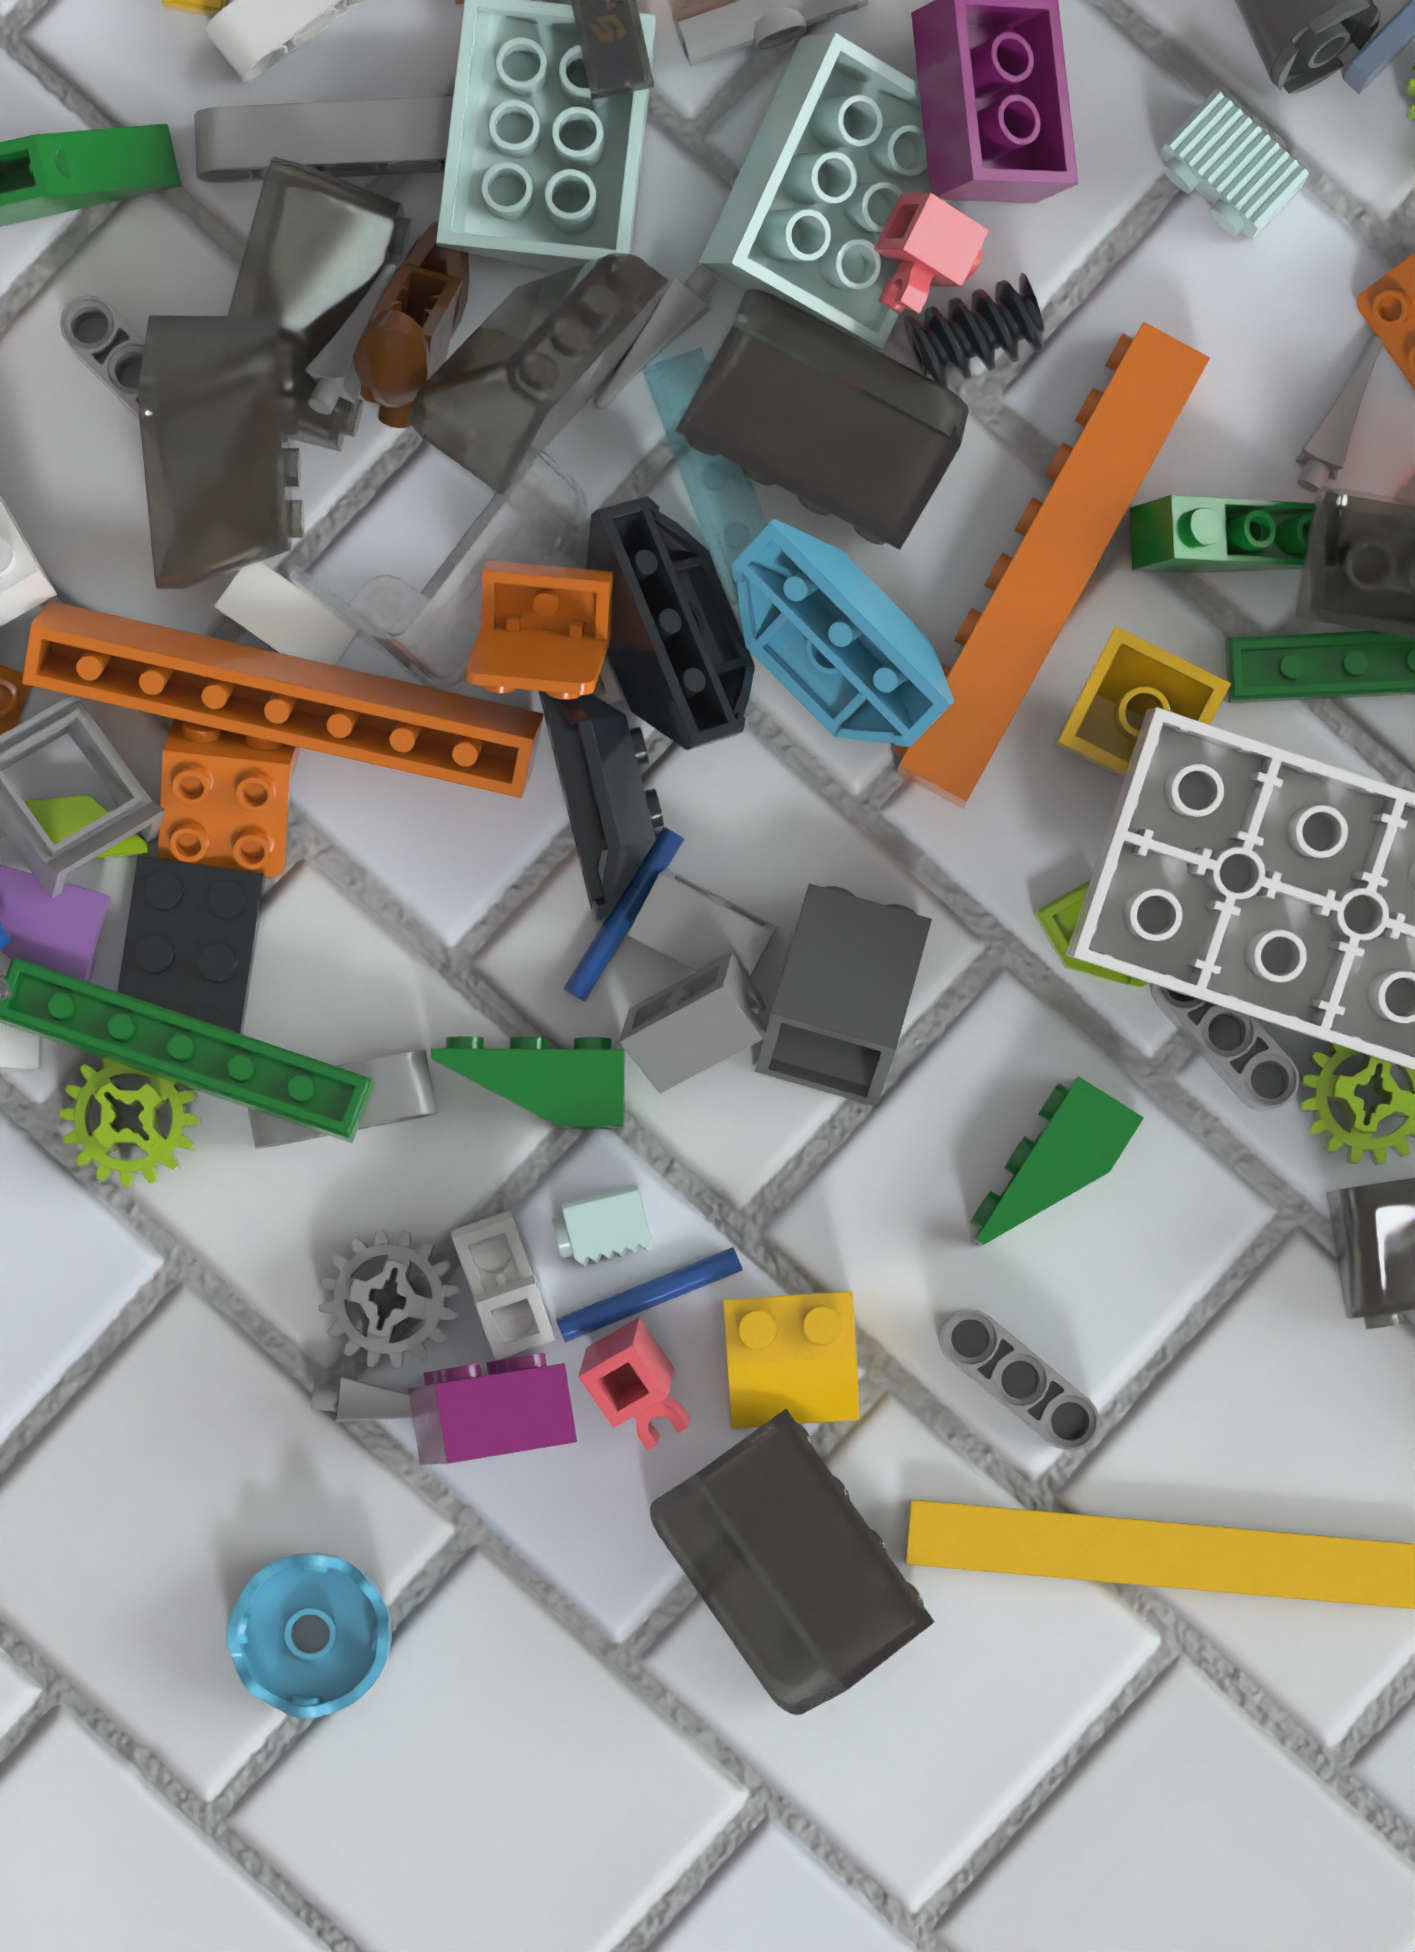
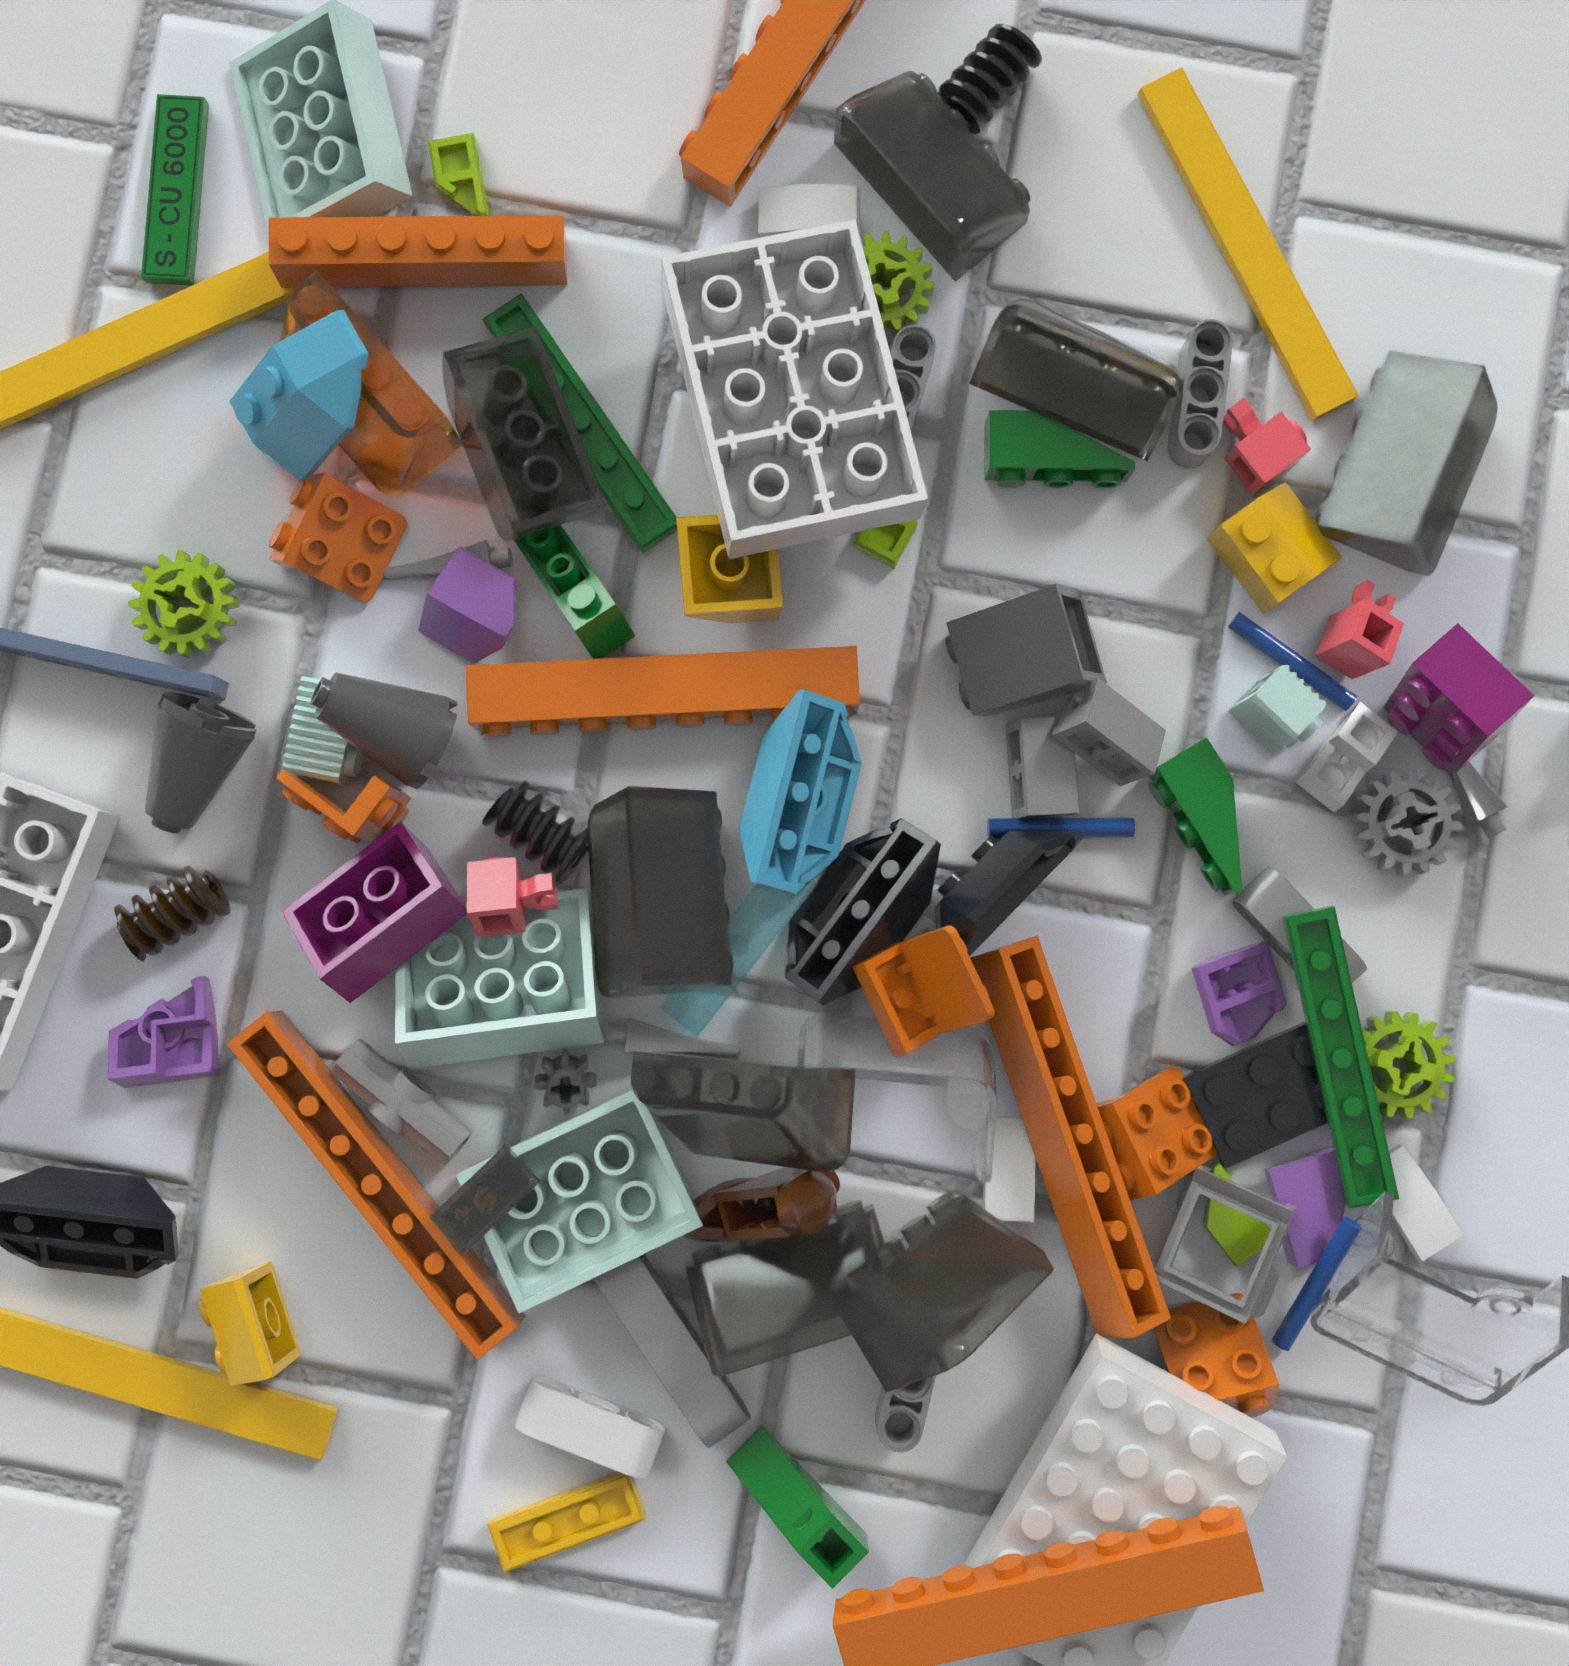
camera: 120 degrees left, 0 degrees up
(319, 991) = (1239, 992): none -> medium lavender slope
(335, 364) = (829, 1242): light grey piece -> none
(666, 192) = (561, 1094): none -> dark grey gear
(908, 1414) = (1263, 449): none -> coral brick
(1107, 166) = (369, 816): none -> orange bracket
(1122, 1243) = (1079, 377): none -> clear smoke windscreen
(1194, 232) = (387, 722): none -> dark grey cone
(1276, 406) = (470, 607): none -> medium lavender slope

